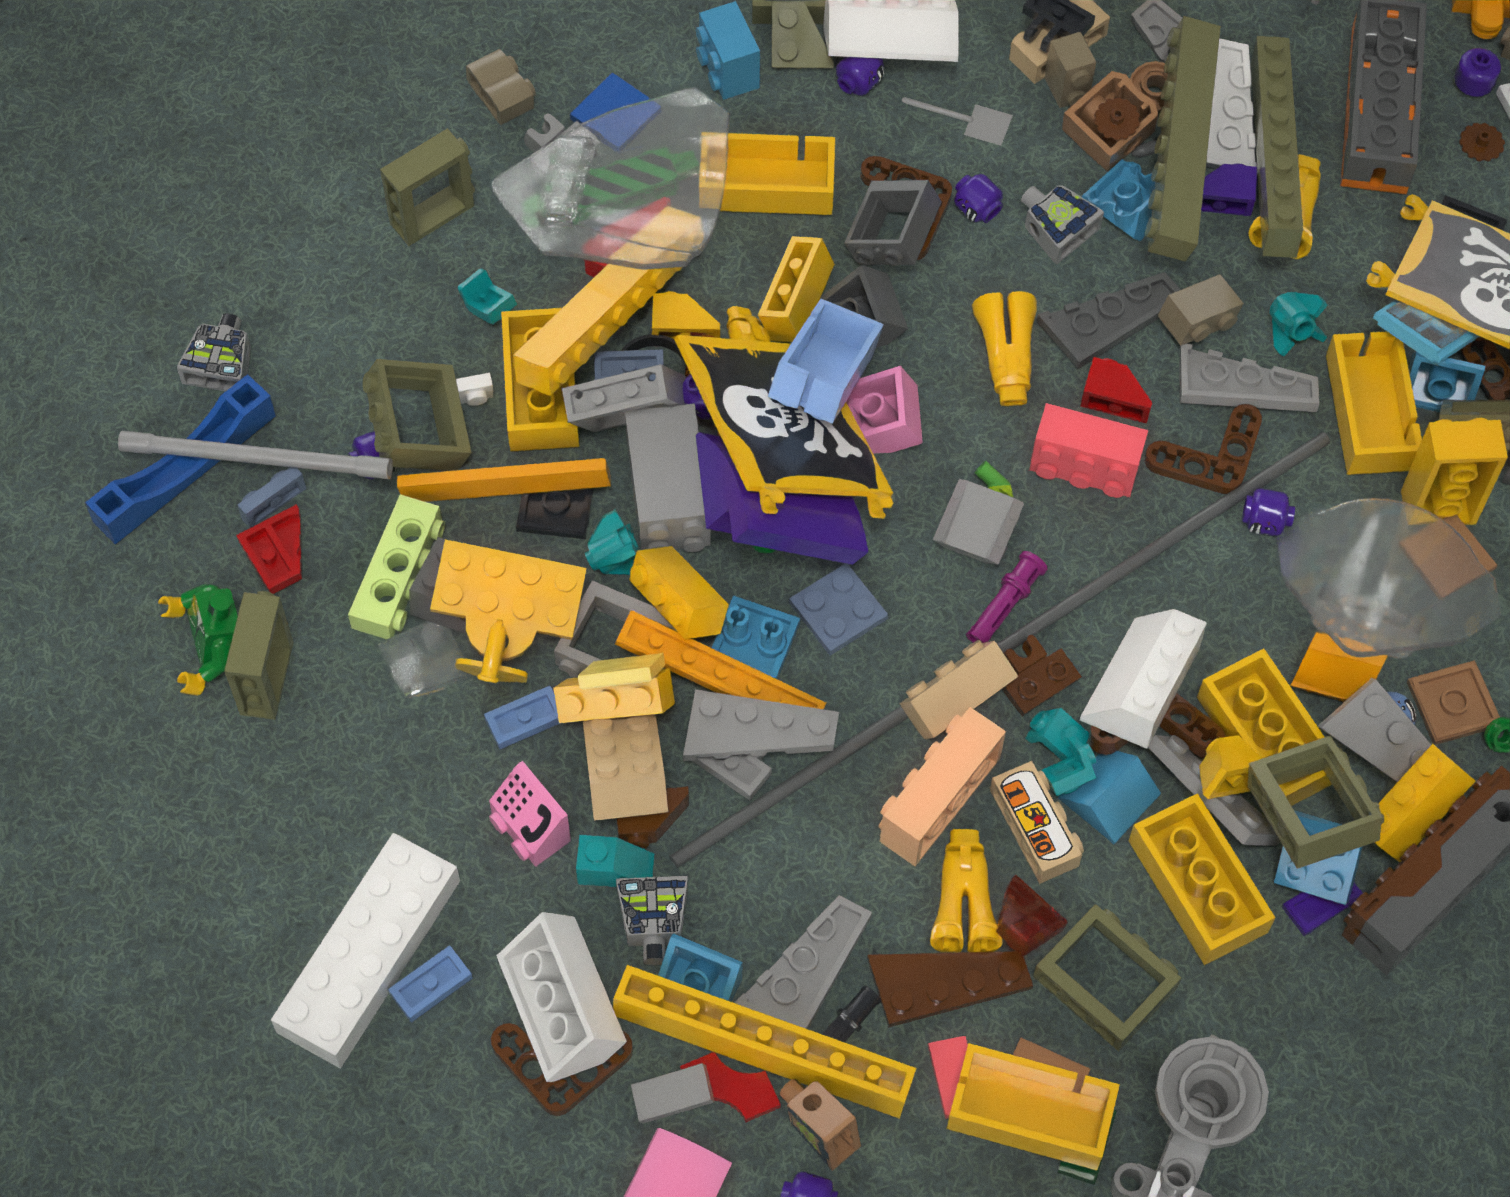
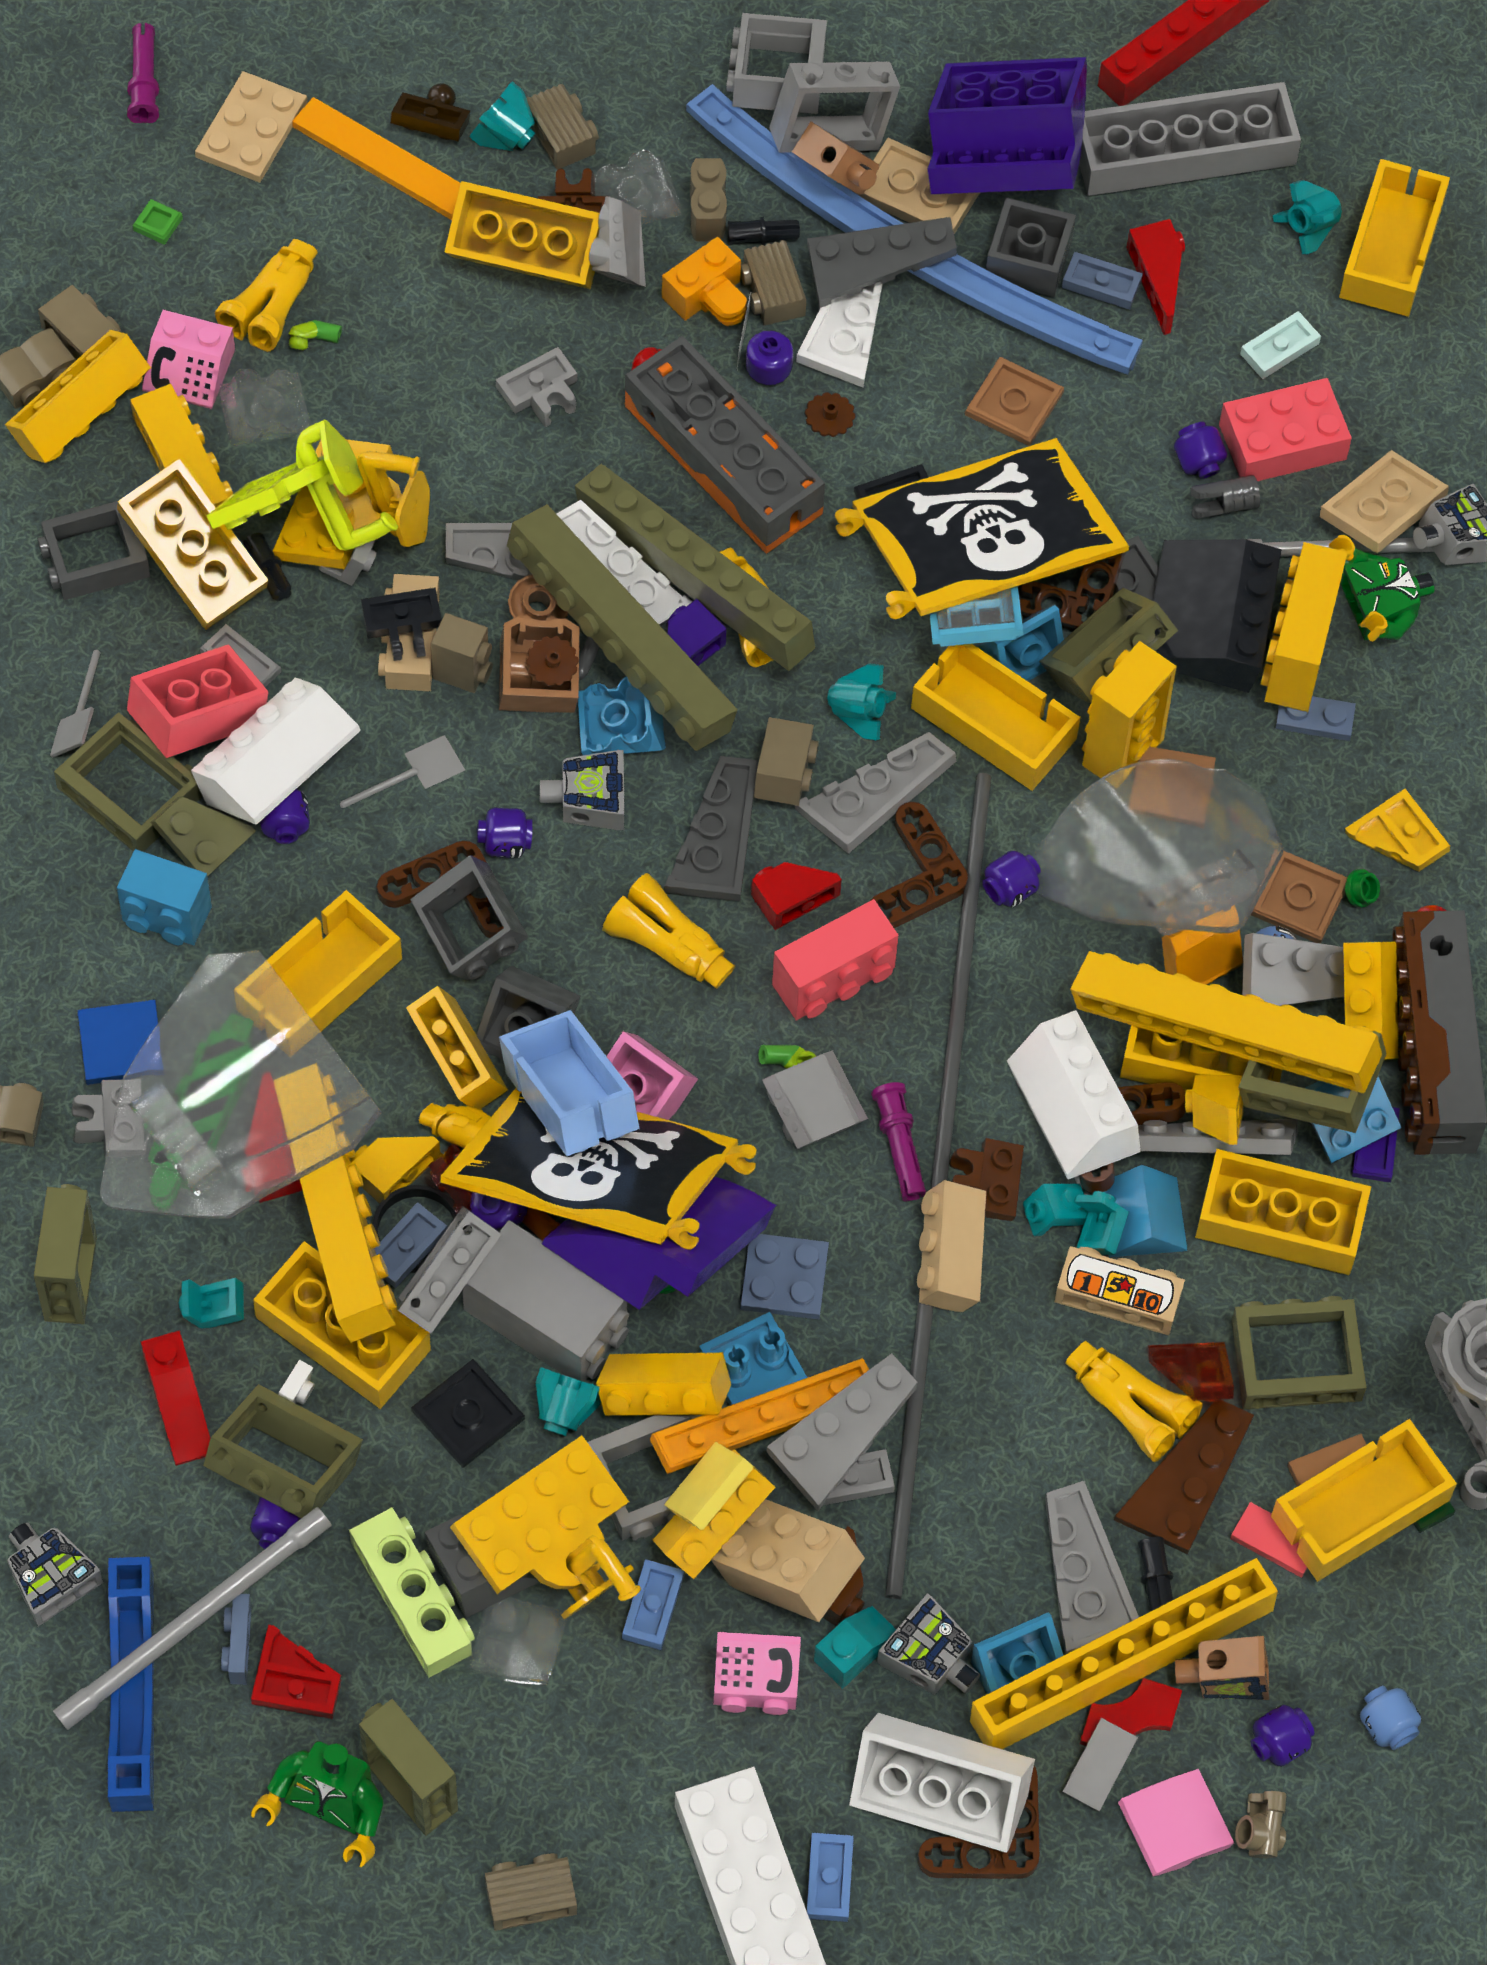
camera: 50 degrees left, 0 degrees up
(251, 806) = (530, 1892): none -> dark tan brick
(408, 322) = (176, 1397): none -> red slope
(505, 480) = (415, 1435): light orange tile -> none
(941, 785) = (1029, 1332): light nougat brick -> none
(1290, 717) = (1227, 1021): none -> yellow brick
(1481, 42) = (743, 332): none -> white sticker

